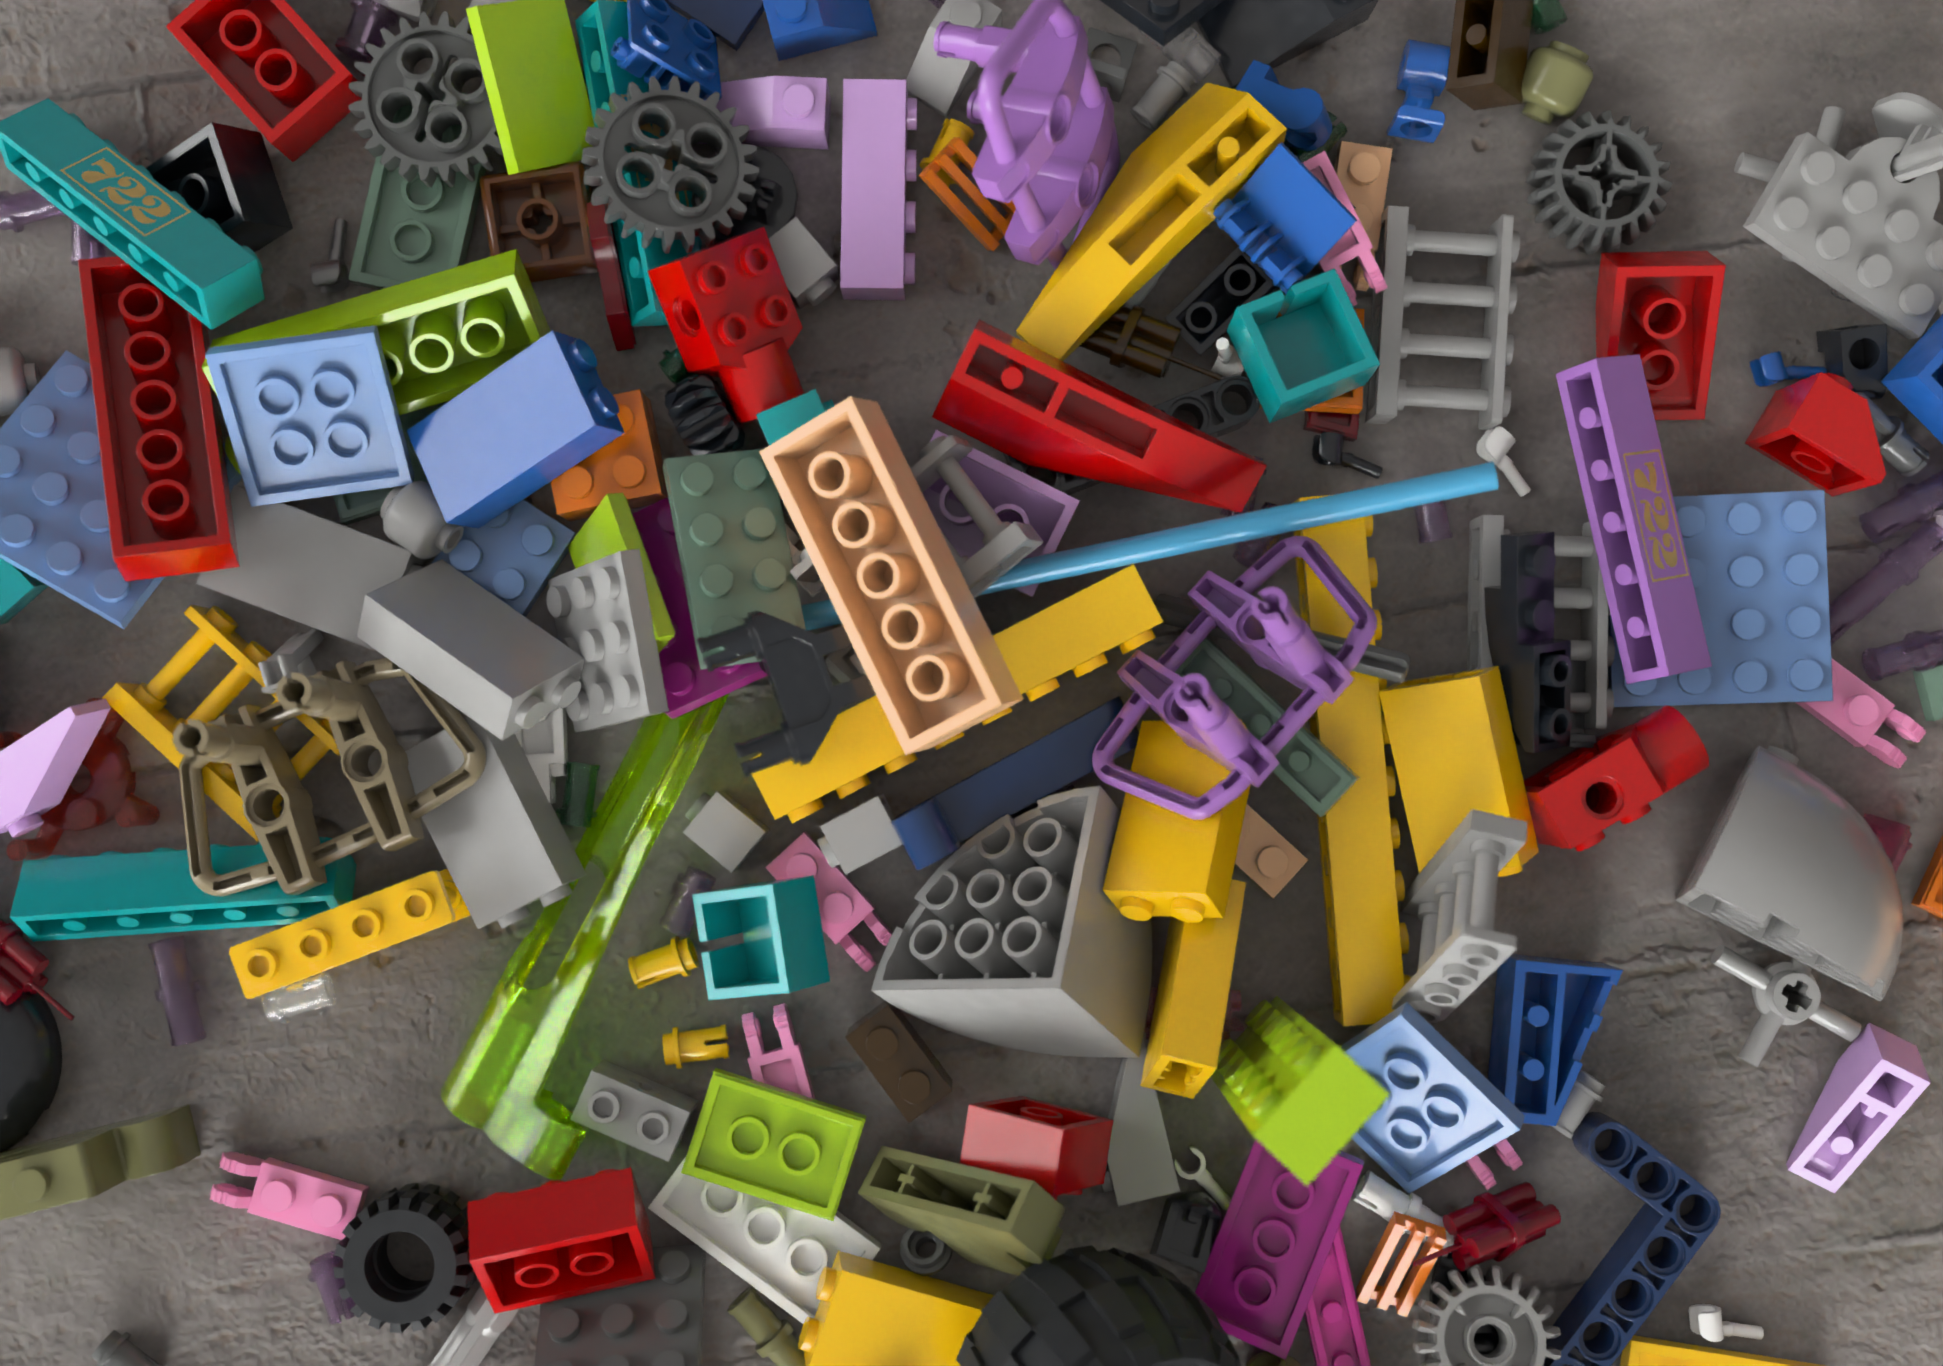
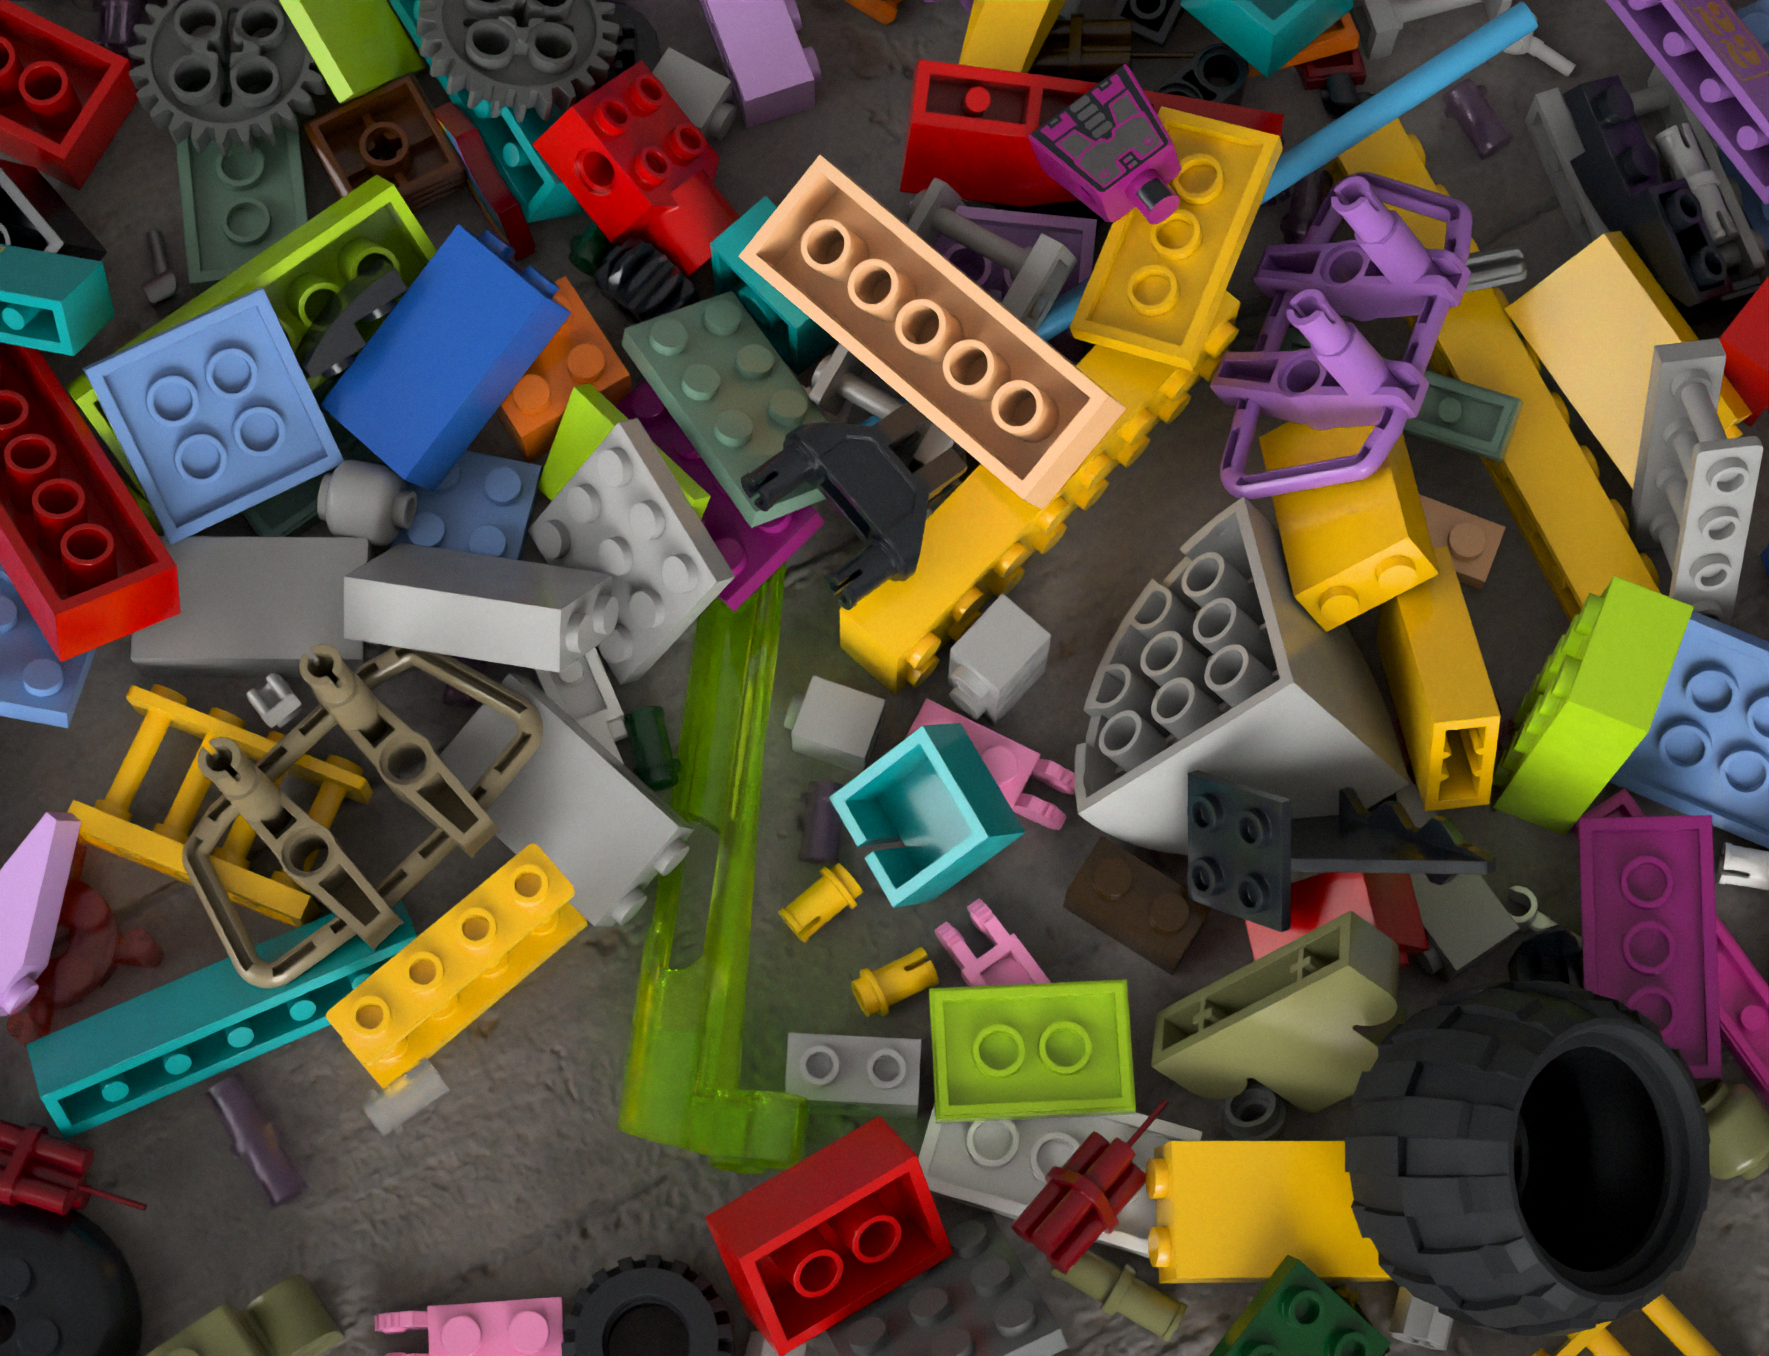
camera: 15 degrees left, 15 degrees down
(430, 381) = (333, 337): none -> black slope
(766, 1273) = (1083, 1198): none -> dark red piece
(1006, 786) = (1089, 606): dark blue beam -> none
(1040, 1097) = (1249, 844): none -> black piece
(1102, 469) = (1111, 151): none -> torso
(1128, 557) = (1165, 280): none -> yellow plate
(1228, 361) = (1192, 38): white hand -> none
(1579, 627) = (1685, 160): none -> light grey pin

